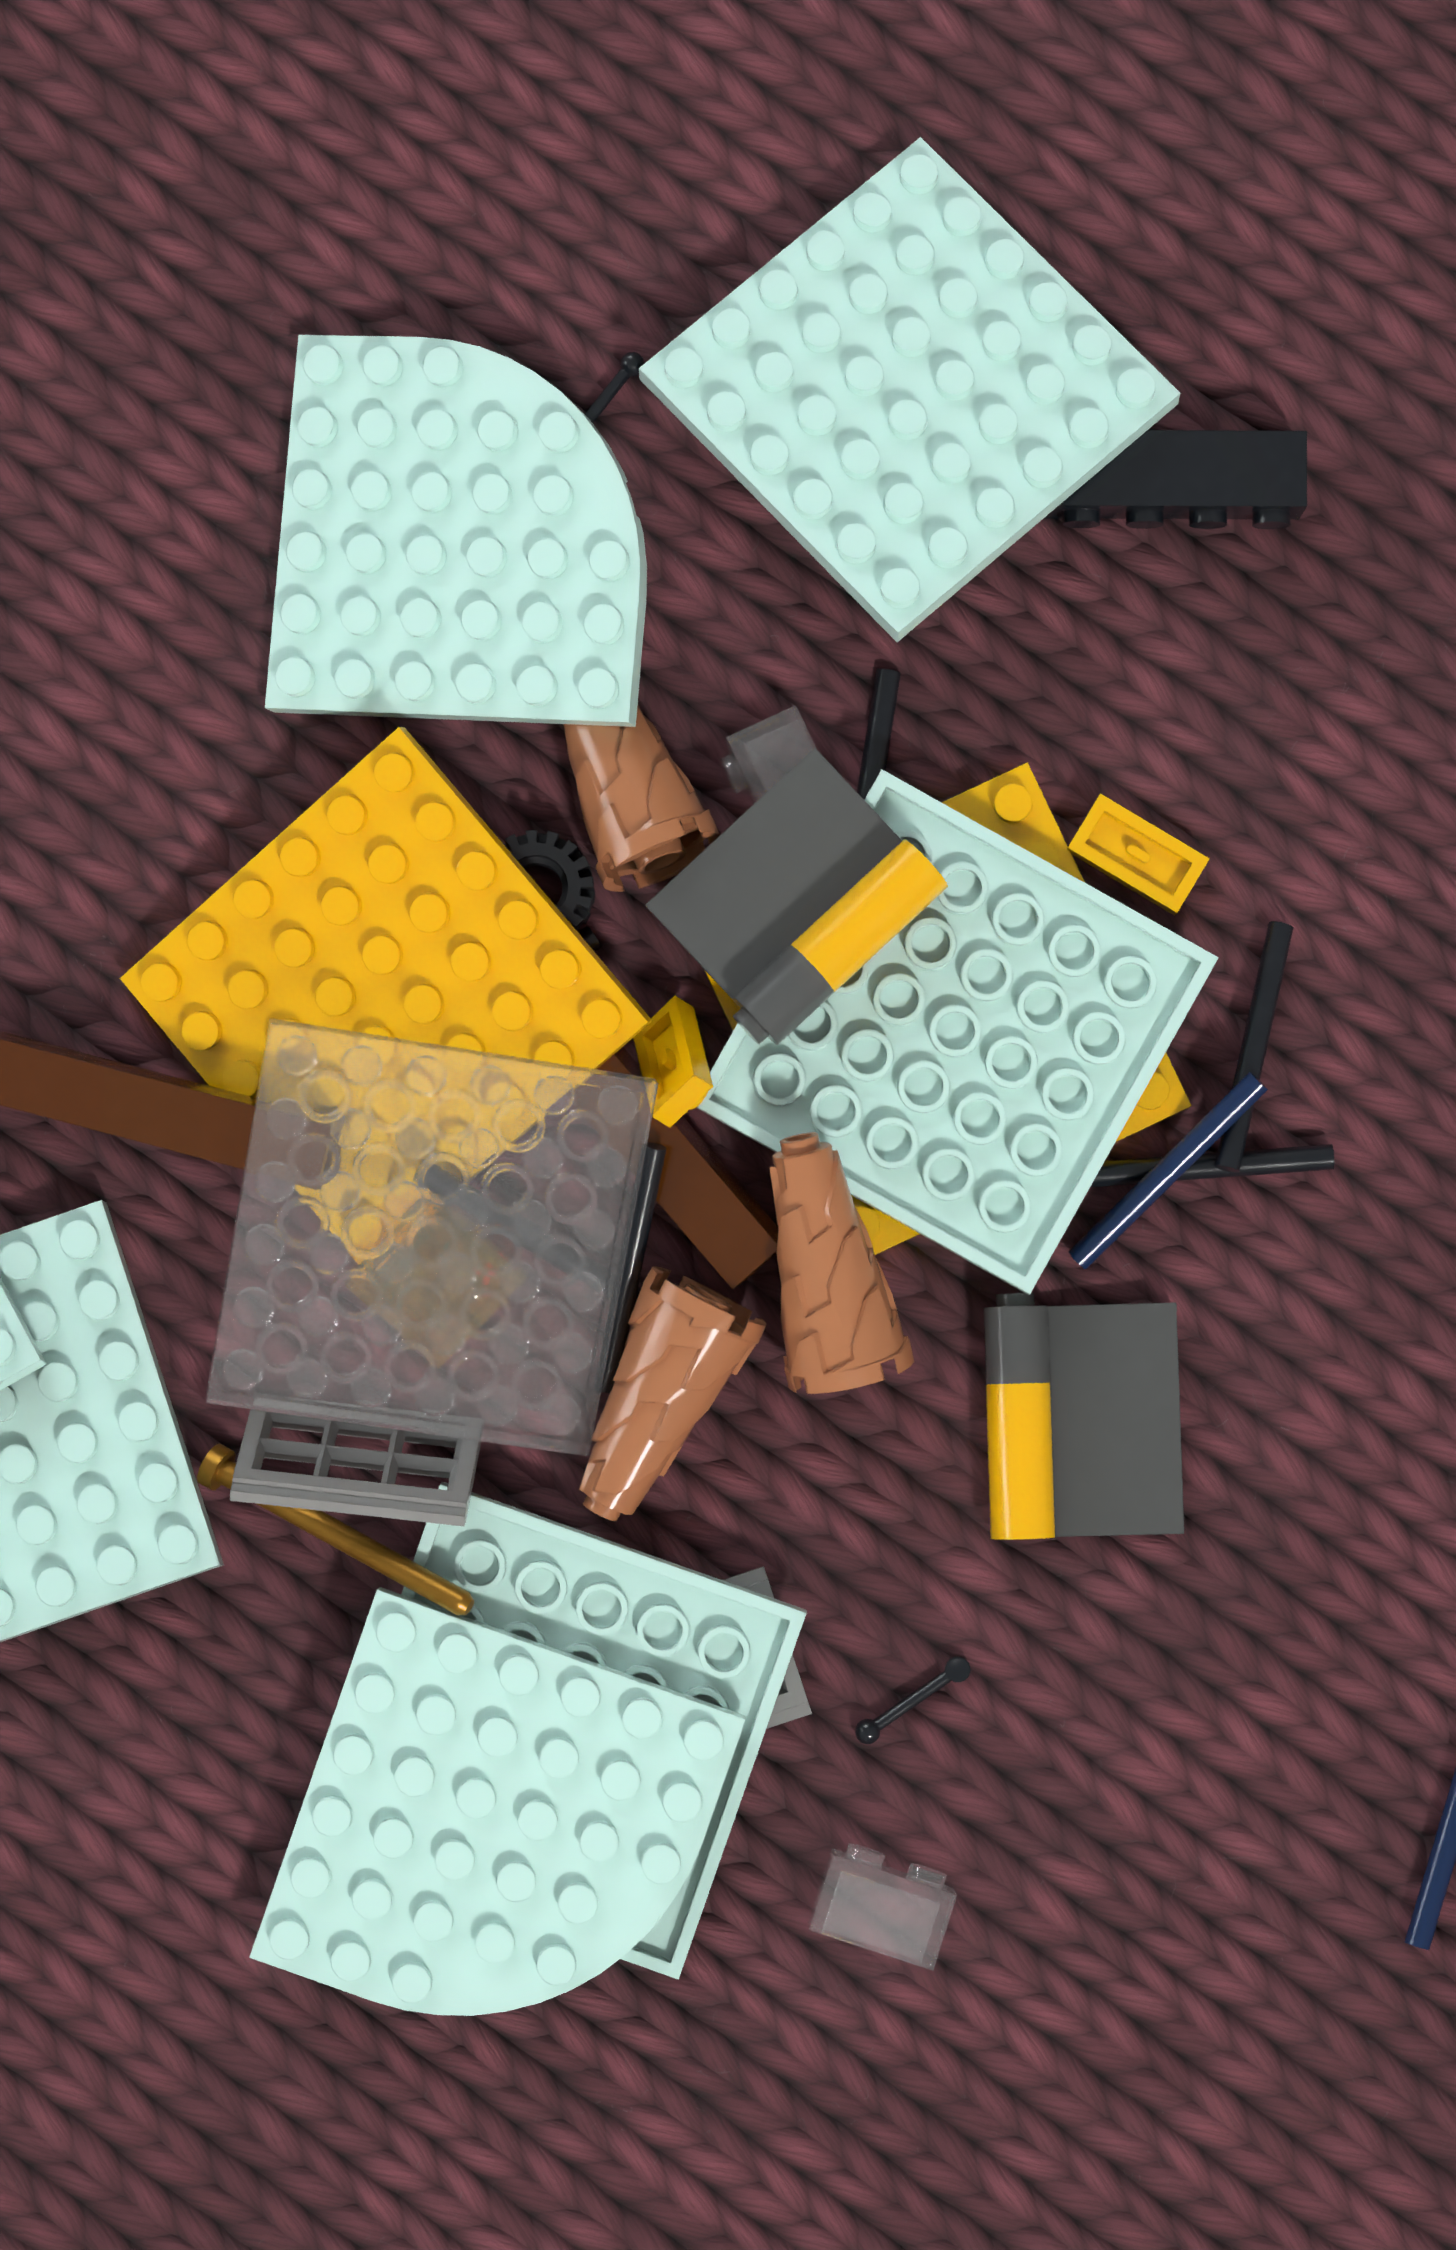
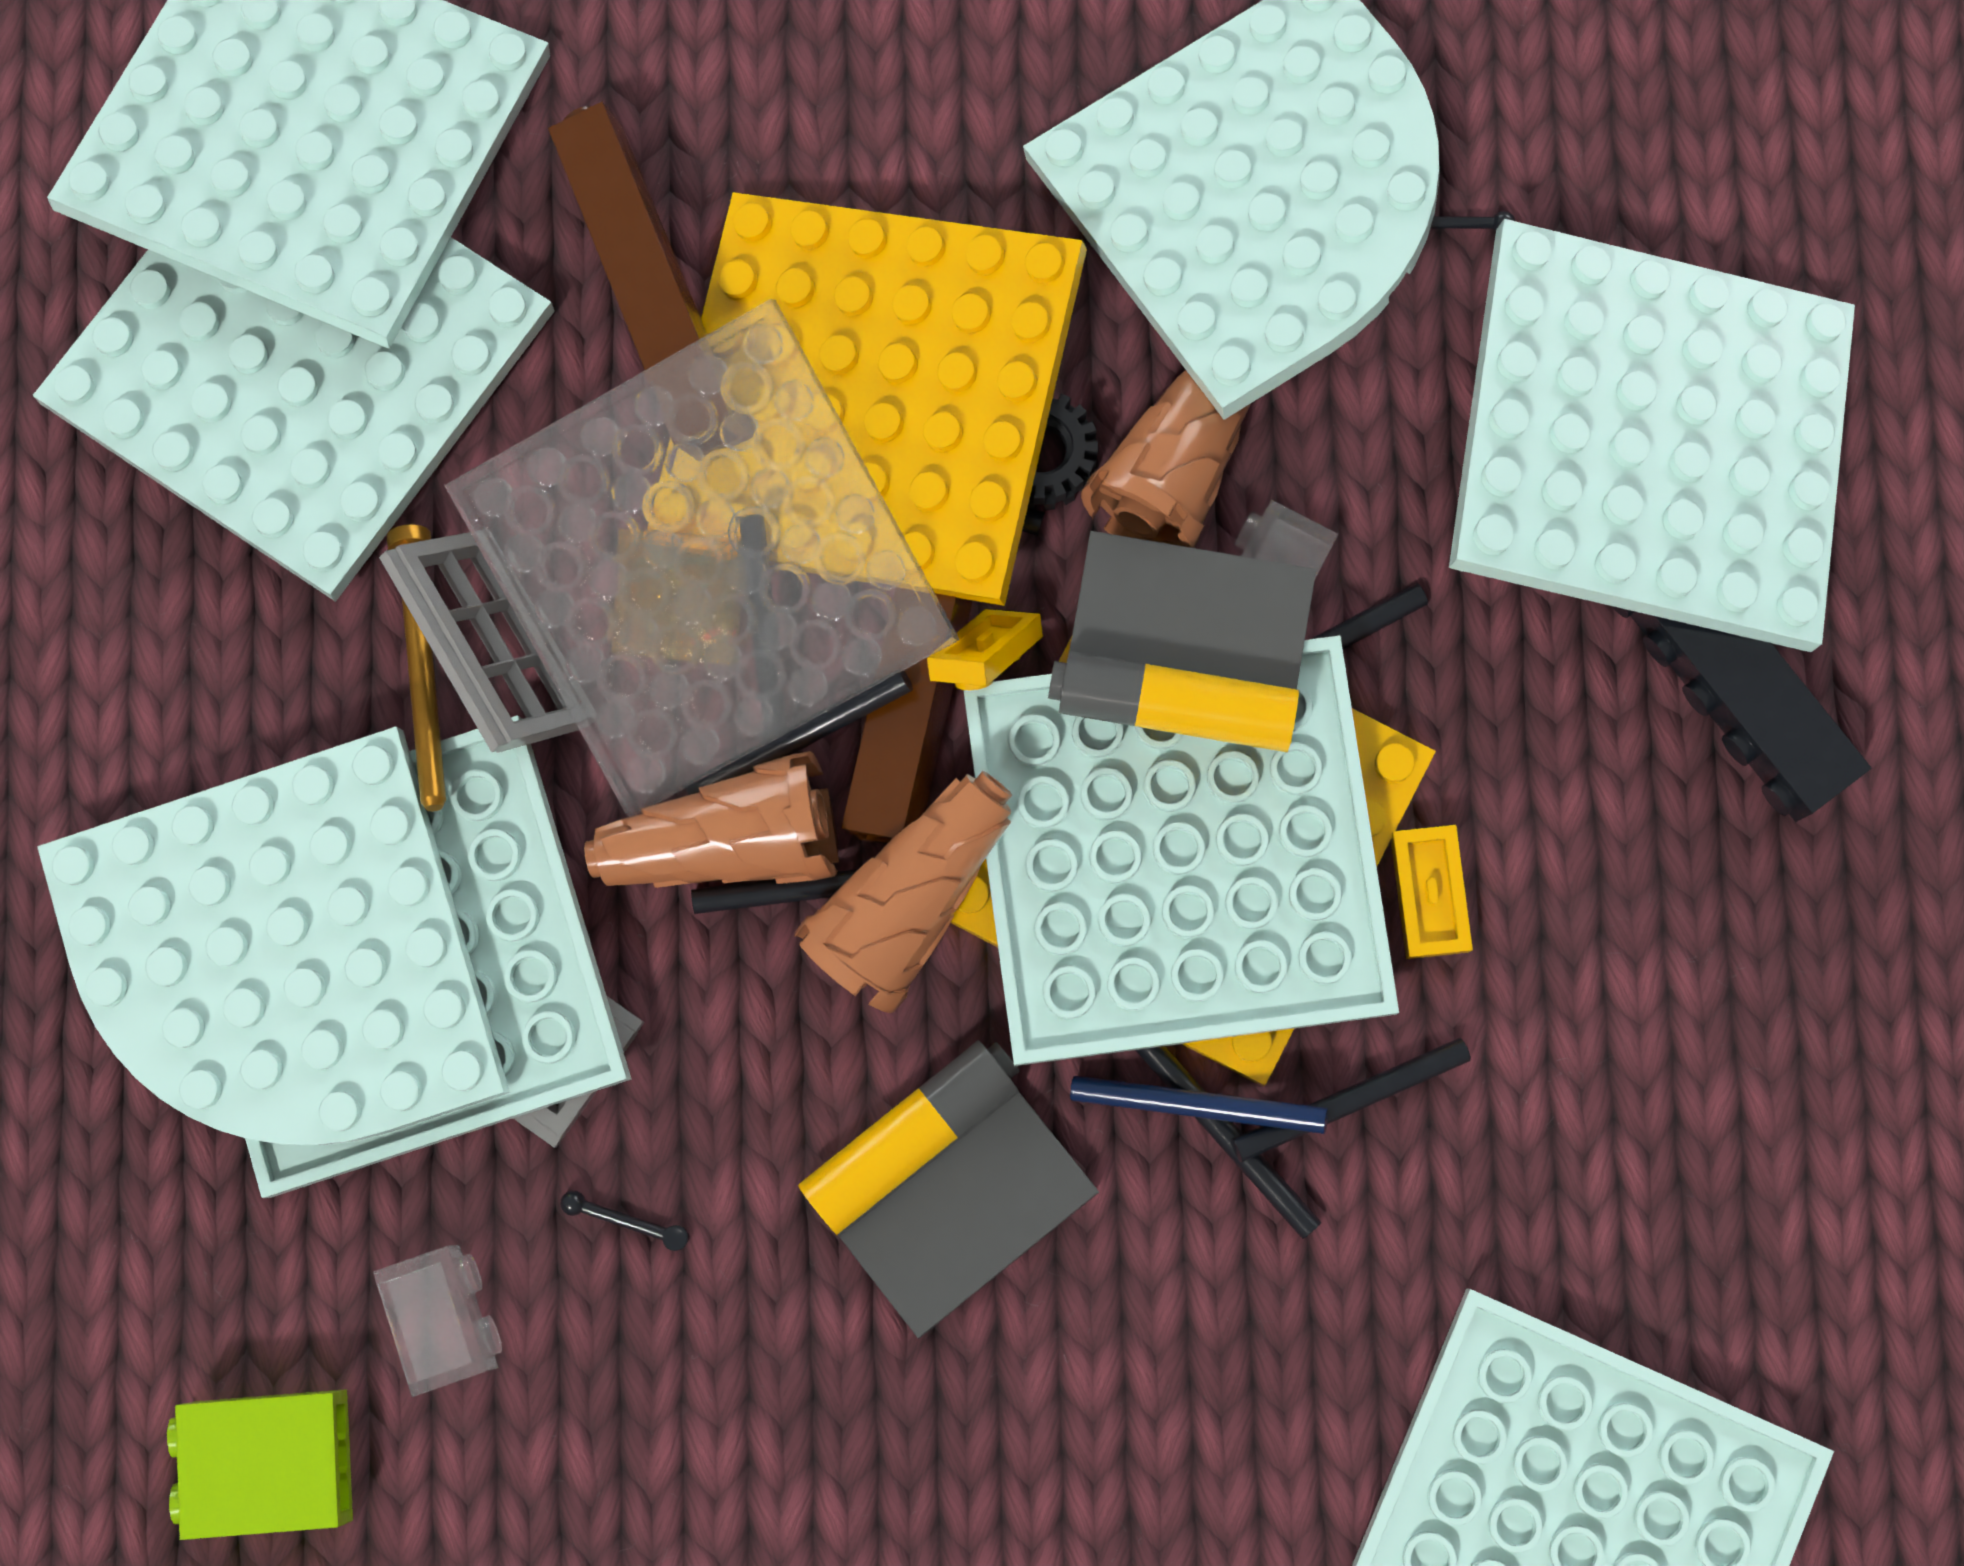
camera: 50 degrees right, 5 degrees down
(717, 1417) = (764, 893): none -> black bar
(892, 2132) = (261, 1464): none -> lime brick

